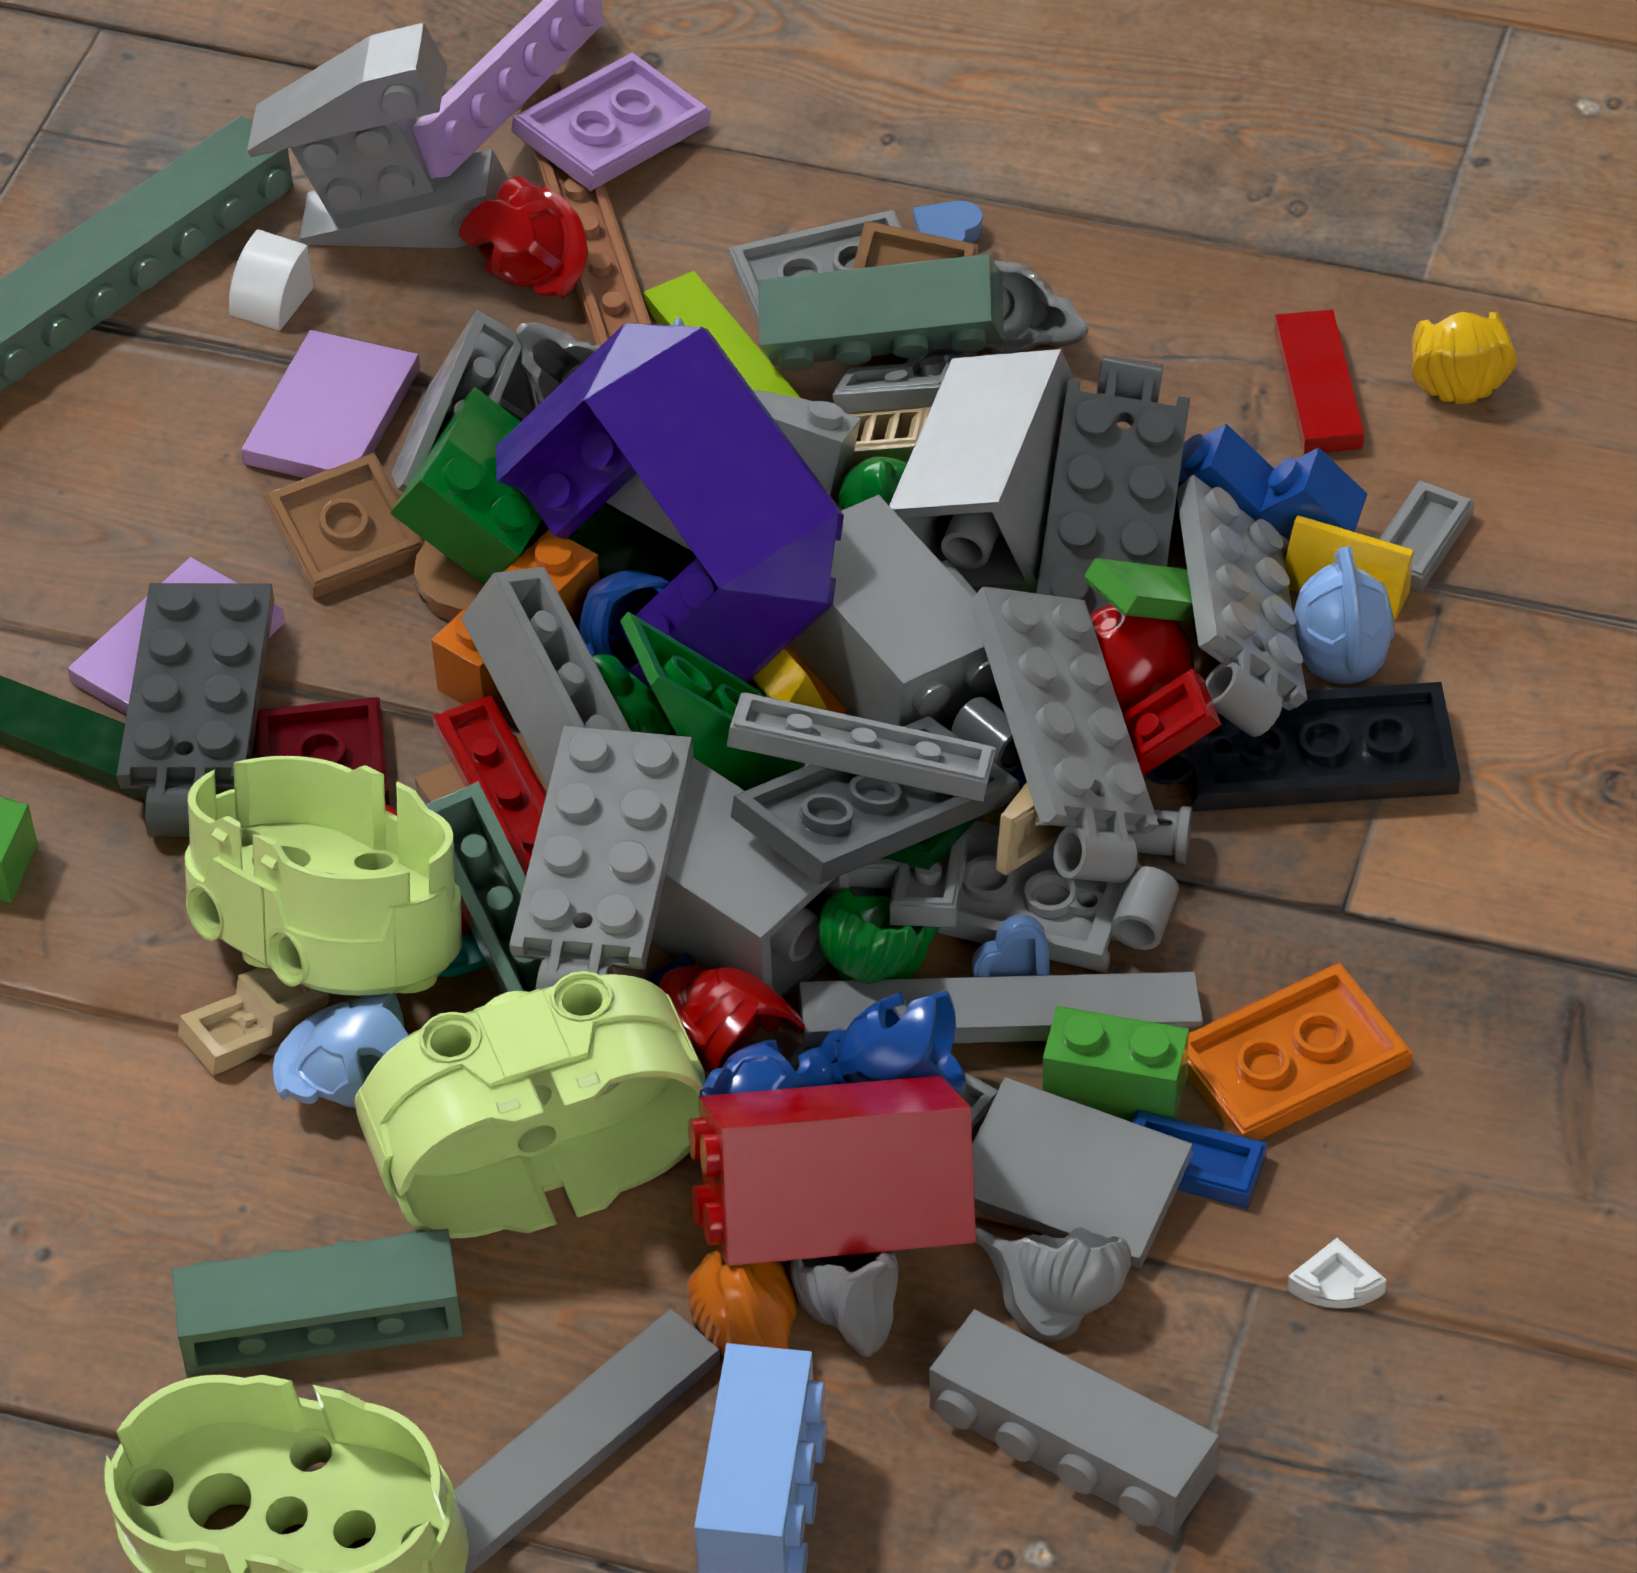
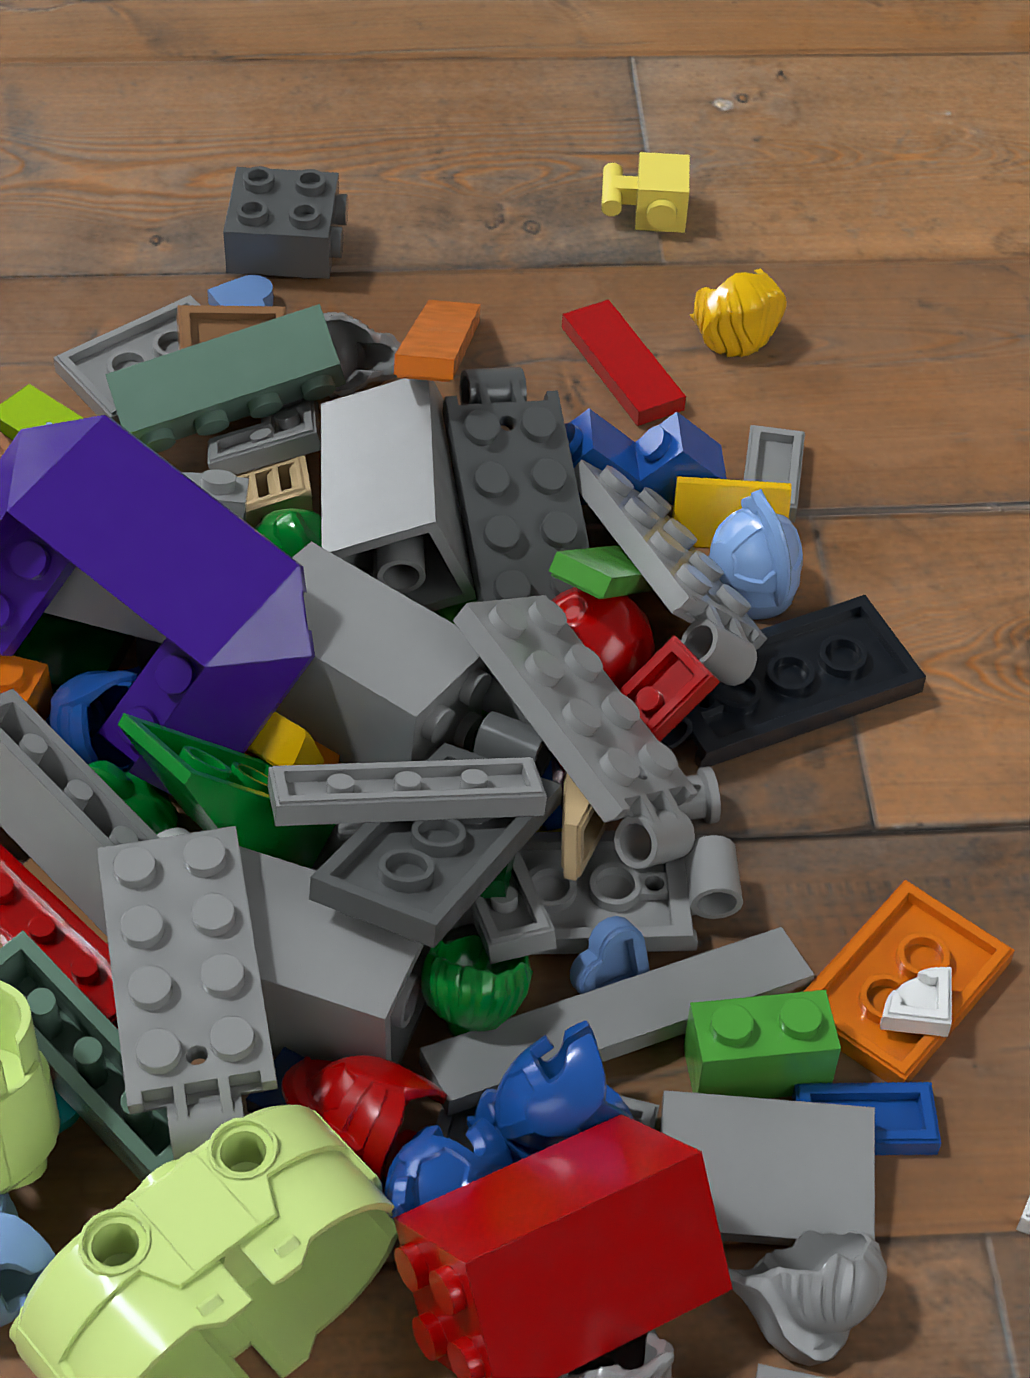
camera: 25 degrees left, 0 degrees up
(1018, 150) = (284, 222): none -> dark grey brick
(1102, 316) = (437, 341): none -> orange tile
(1287, 1072) = (921, 1004): none -> white tile
(1444, 200) = (657, 191): none -> light yellow brick

